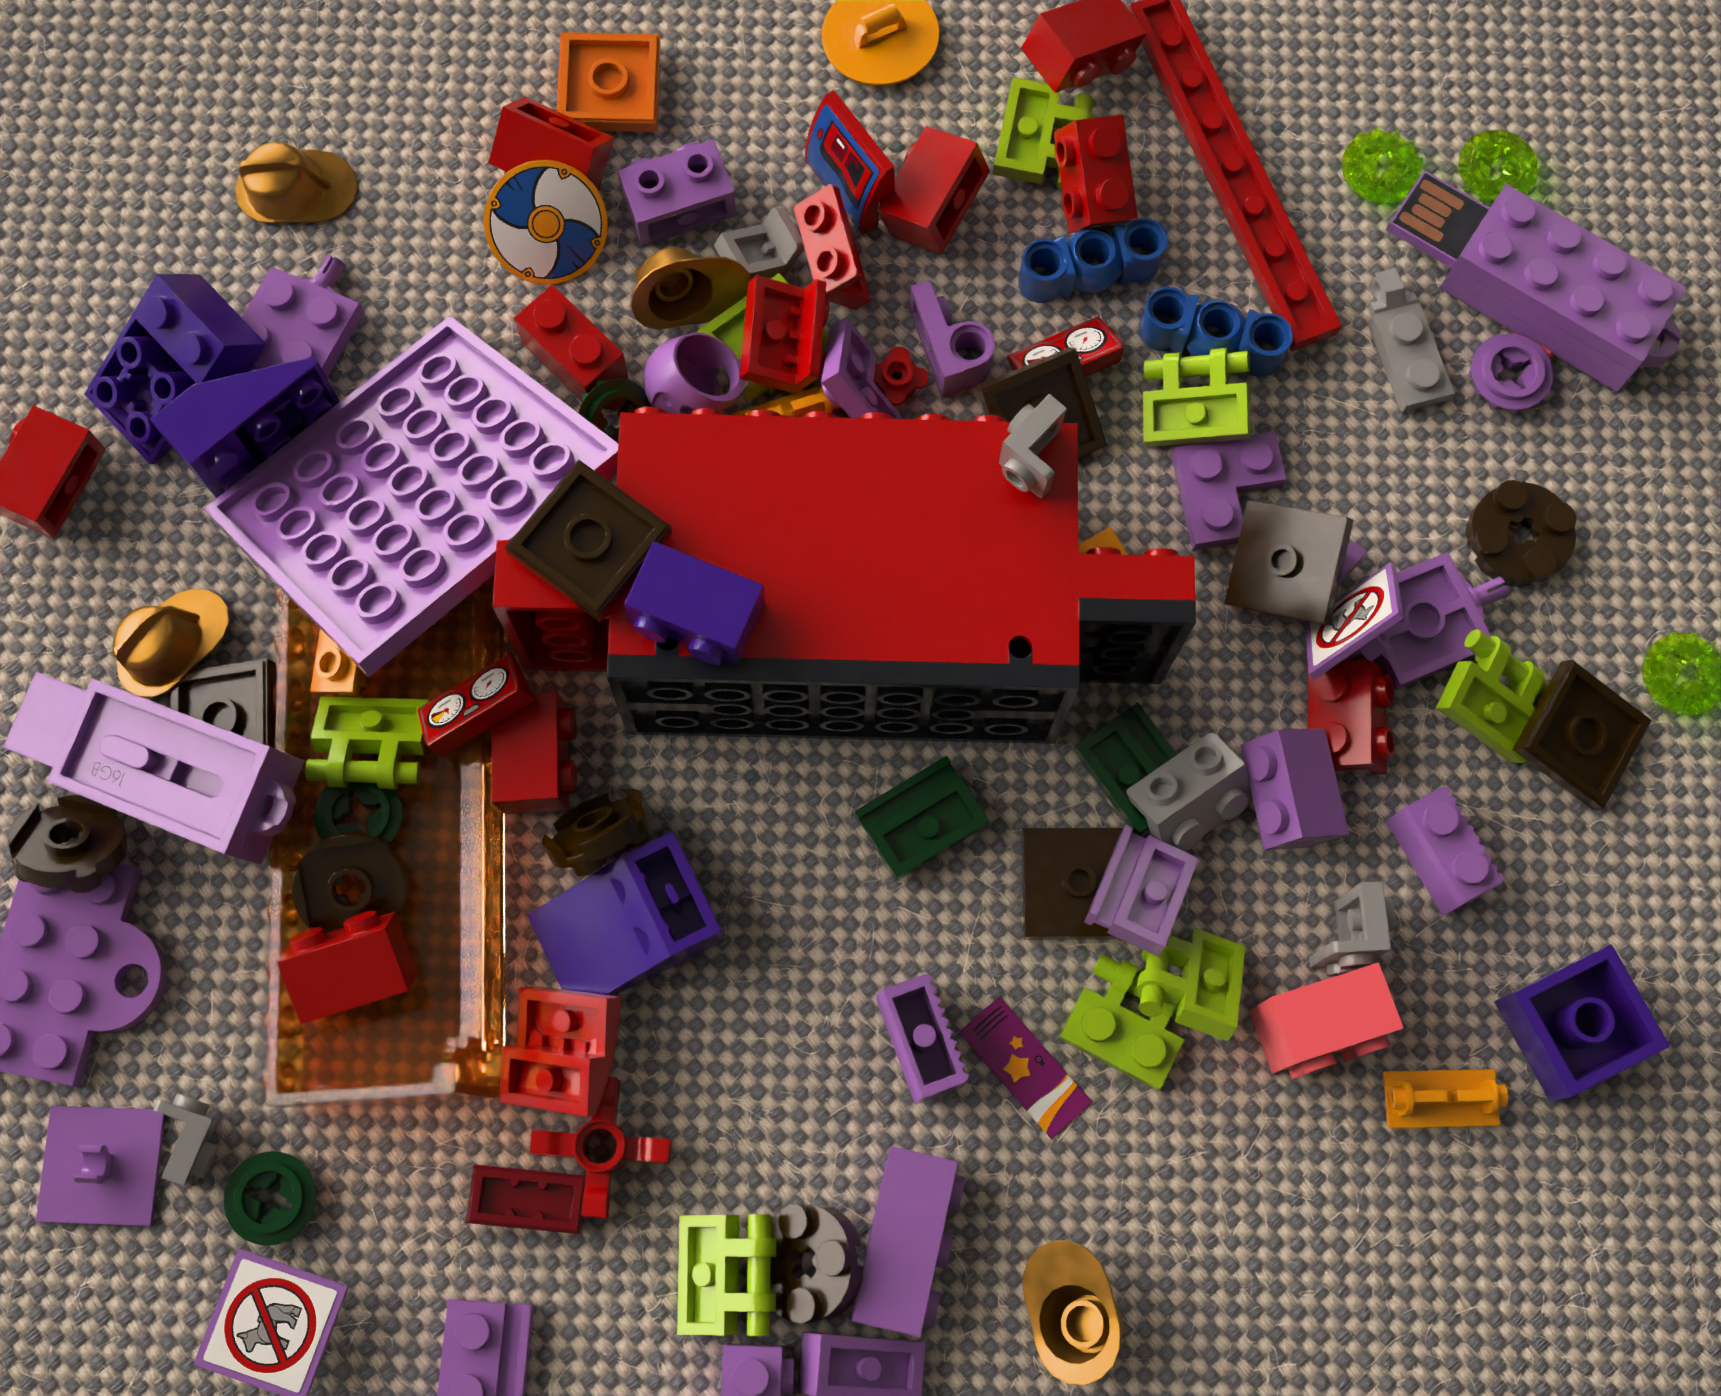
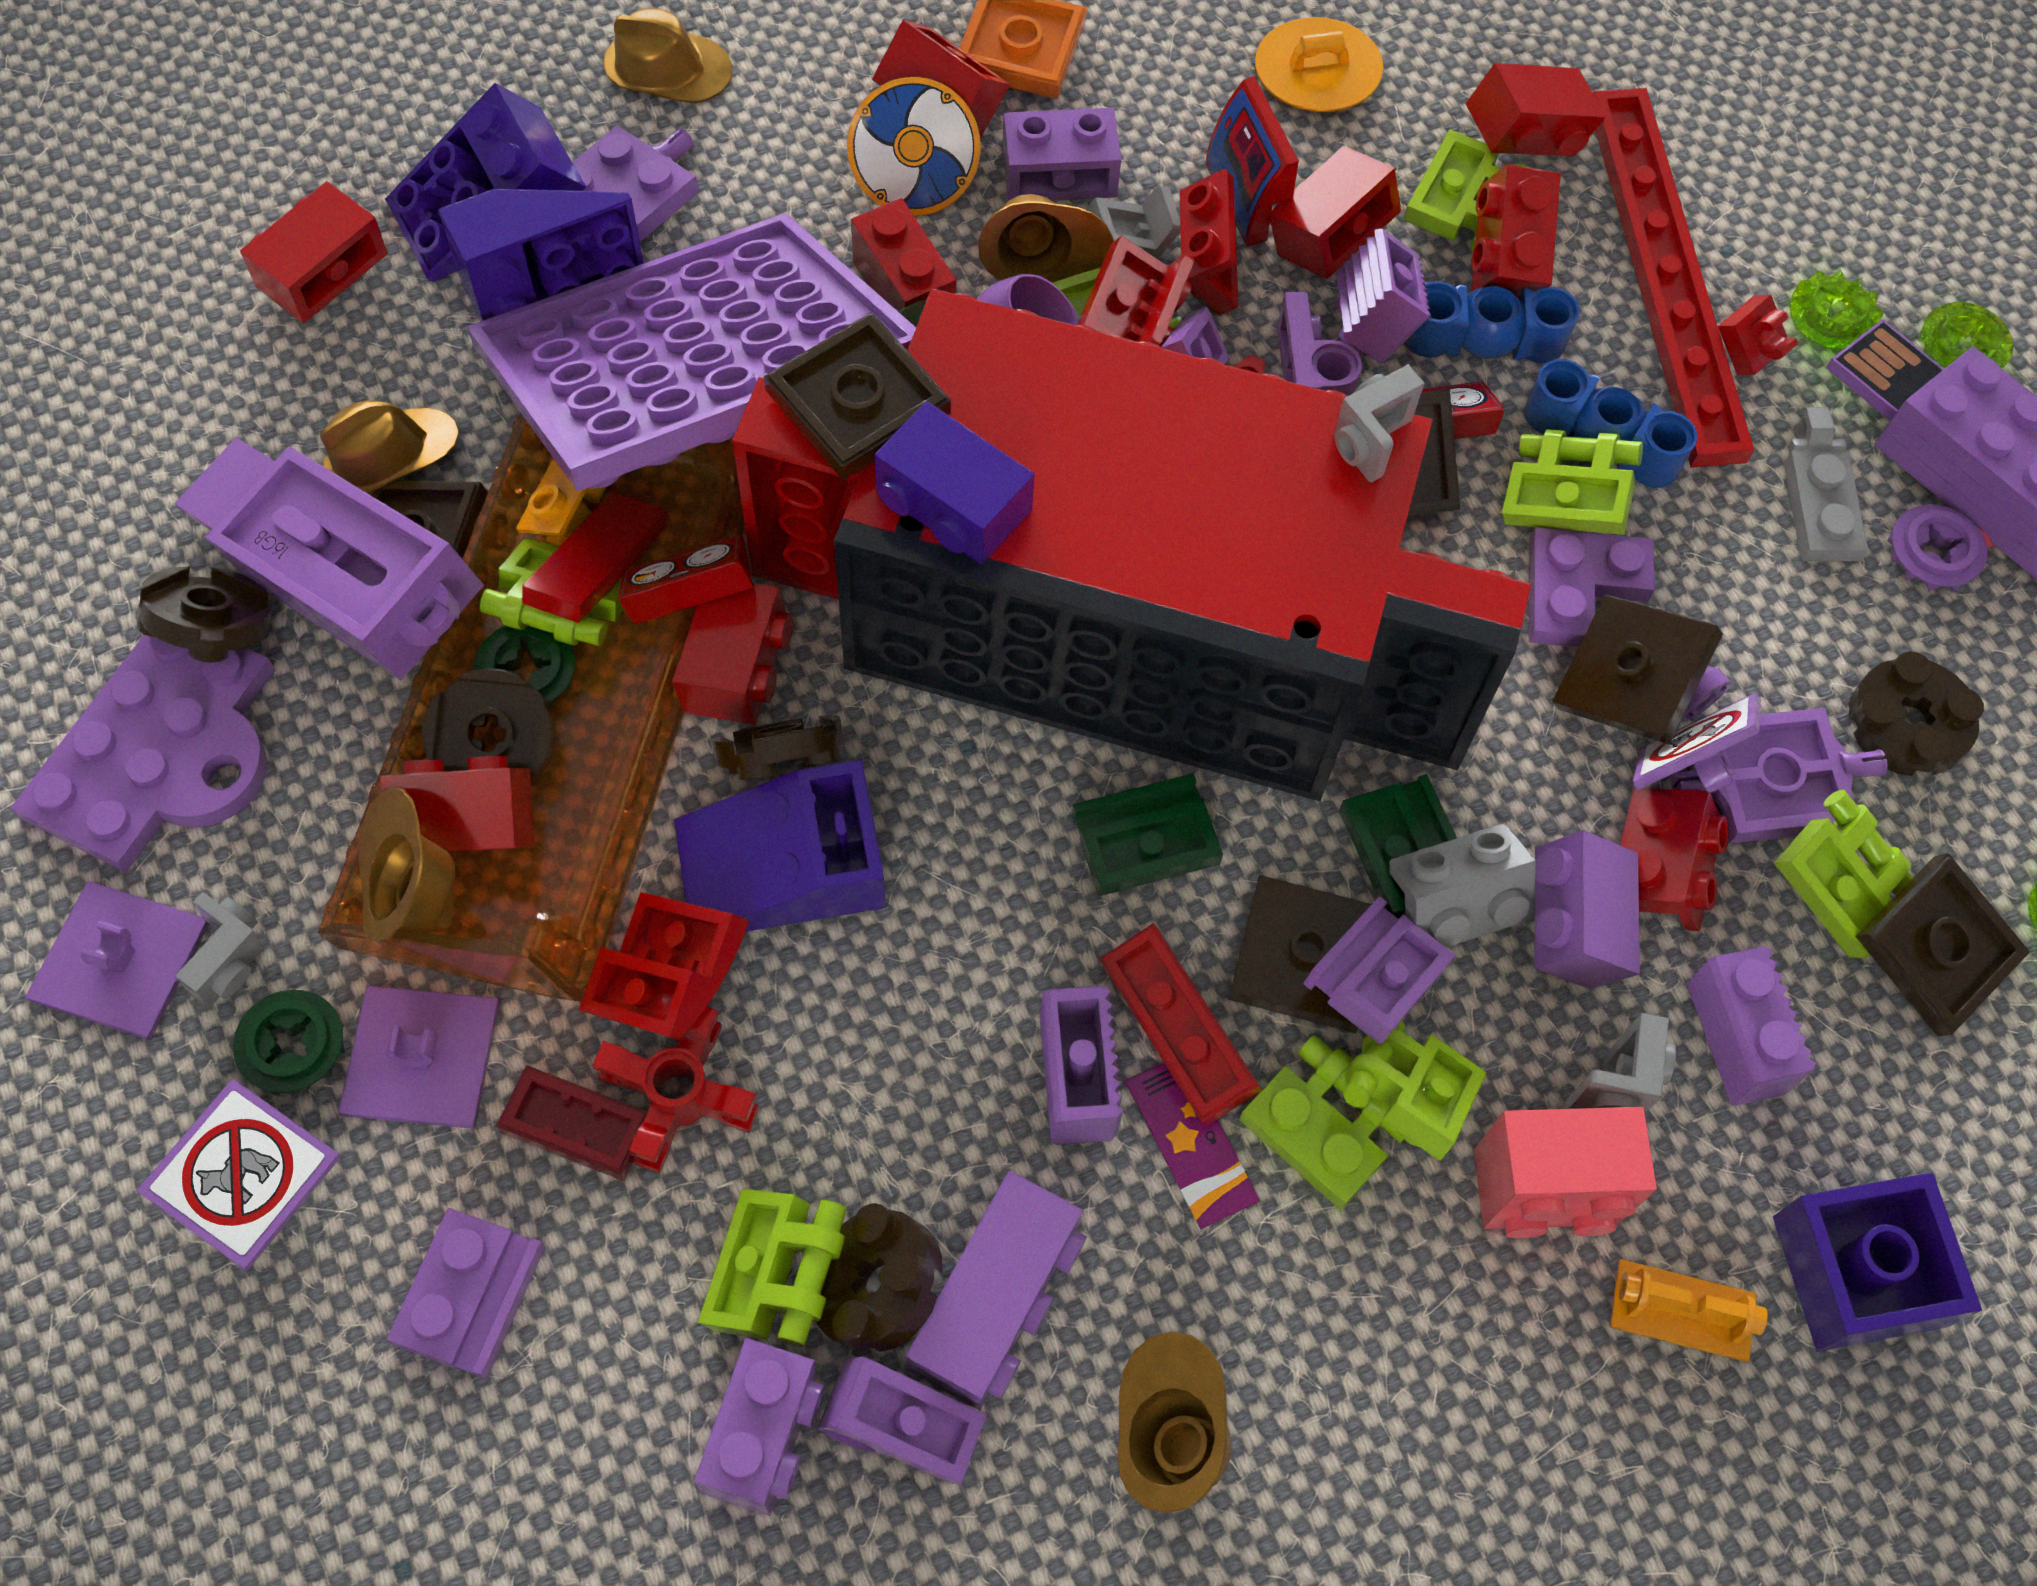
camera: 15 degrees right, 10 degrees down
(324, 1042) = (402, 873): none -> pearl gold piece
(381, 1177) = (419, 1057): none -> medium lavender piece
(389, 710) = (594, 557): none -> red tile
(991, 975) = (1180, 1025): none -> red tile
(994, 267) = (1381, 296): none -> medium lavender brick
(1320, 212) = (1756, 335): none -> red tile

